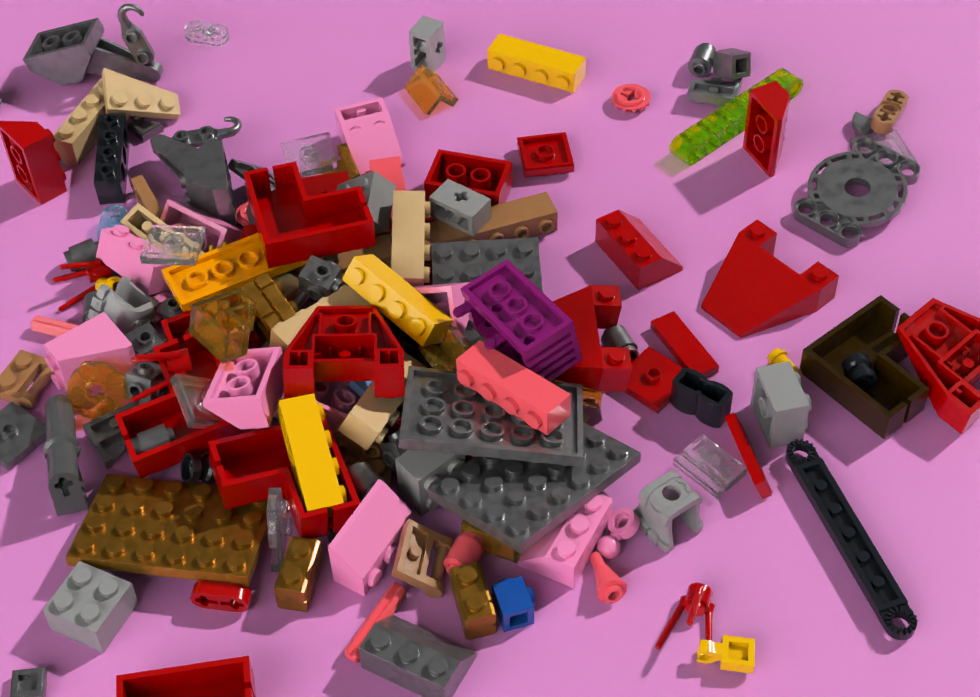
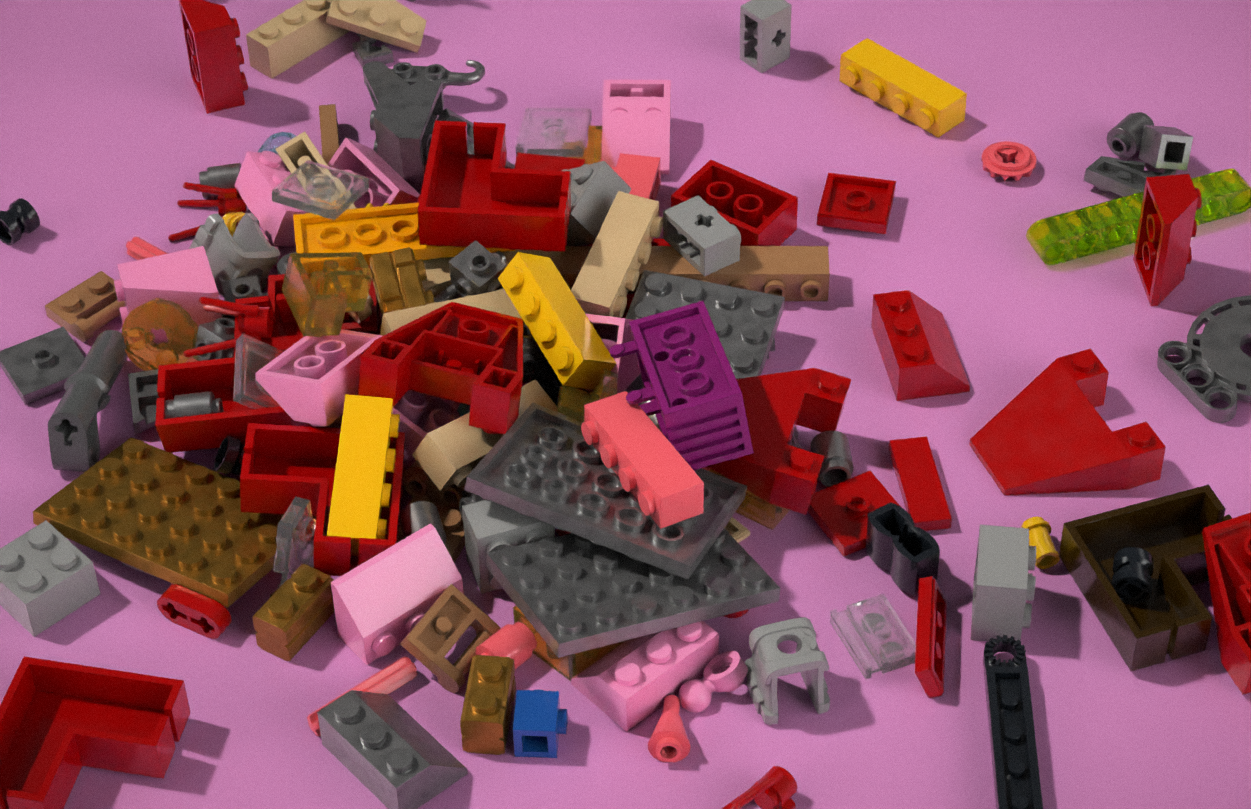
camera: 20 degrees right, 5 degrees down
(112, 159) = (311, 78): black brick -> none
(429, 89) = (747, 85): clear yellow panel -> none

